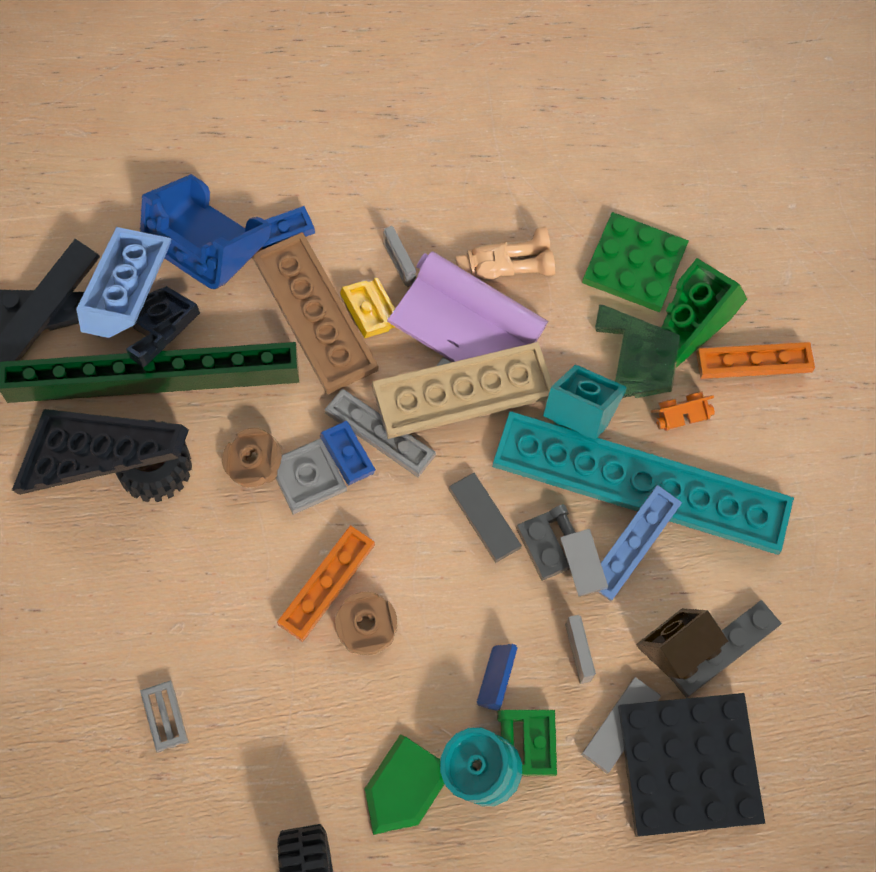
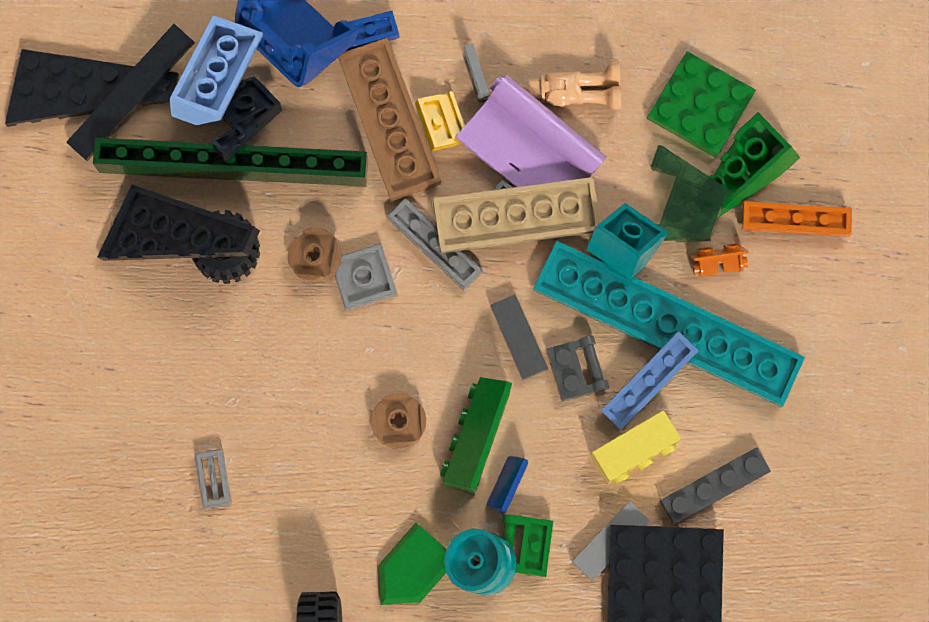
camera: 10 degrees right, 10 degrees up
(326, 583) = (368, 379): orange plate -> none
(347, 453) = (402, 261): blue plate -> none
(456, 626) = (477, 434): none -> green slope
(580, 649) = (585, 469): light grey tile -> none
(584, 562) = (600, 393): light grey tile -> none
(632, 618) = (636, 448): none -> light yellow brick
(684, 642) = (677, 478): dark brown slope -> none

